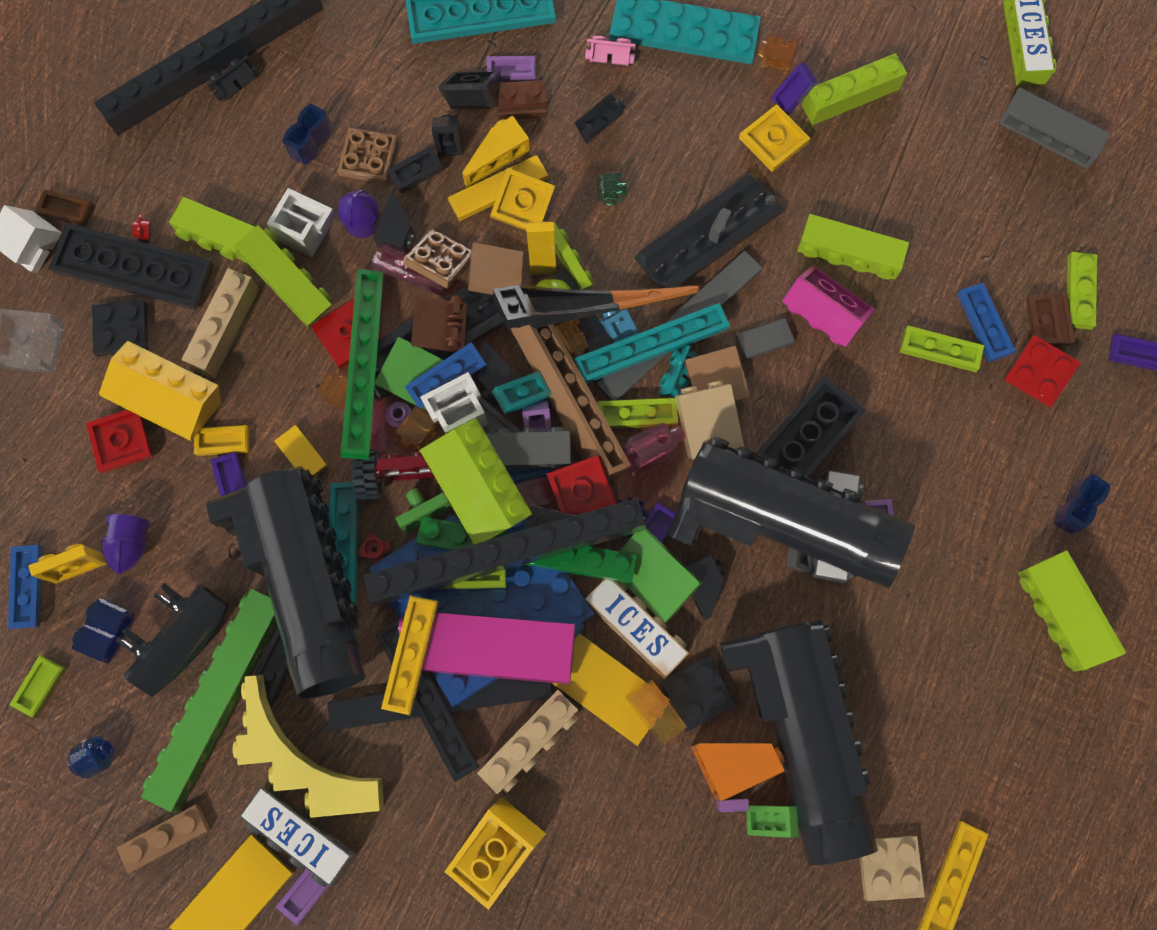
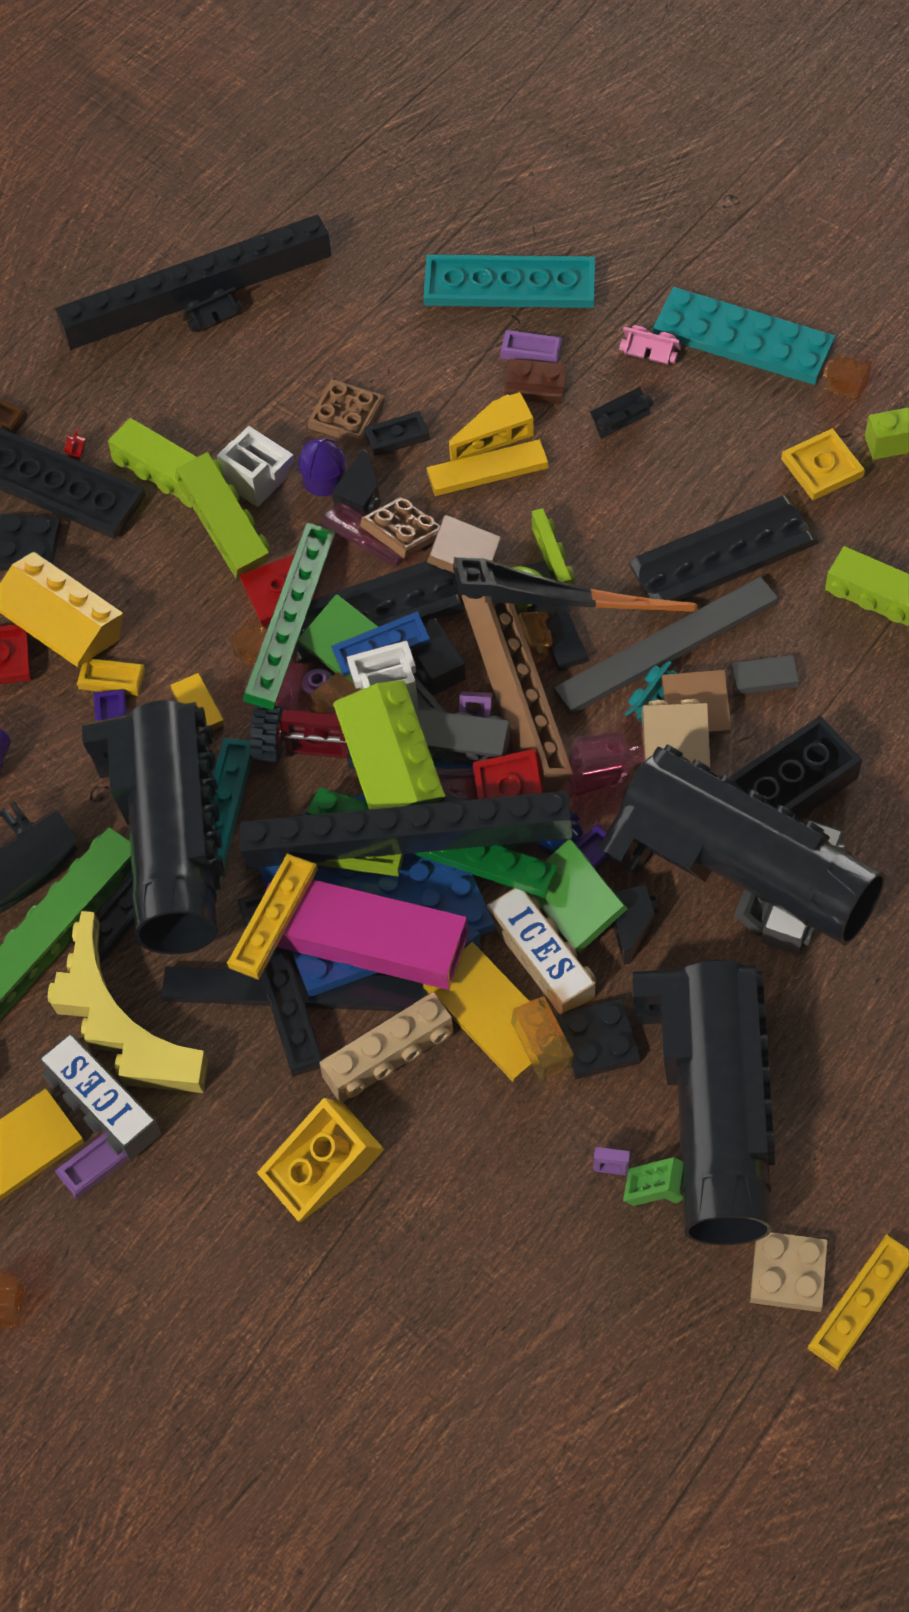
camera: 15 degrees right, 15 degrees down
(220, 323) = (140, 553): tan brick -> none
(307, 134) = (283, 377): clear blue brick -> none
(370, 542) = (255, 809): red plate -> none
(421, 508) = (337, 780): bright green tile -> none
(439, 323) = (386, 590): copper hinge -> none
(447, 135) = (440, 403): black slope -> none
(471, 89) = (480, 360): black slope -> none
(521, 199) = (511, 483): yellow plate -> none
(521, 392) = (463, 676): teal plate -> none
(541, 248) = (519, 526): yellow tile -> none
(611, 188) = (618, 486): clear green plate -> none
(619, 325) = (594, 631): dark azure bracket -> none
(639, 413) = (584, 722): lime plate -> none
(652, 343) = (627, 653): teal plate -> none
(719, 225) = (734, 540): dark grey tile -> none
(737, 766) = (626, 1110): orange slope -> none
(794, 88) = (855, 413): dark purple tile -> none
(828, 305) = (846, 649): dark pink slope -> none

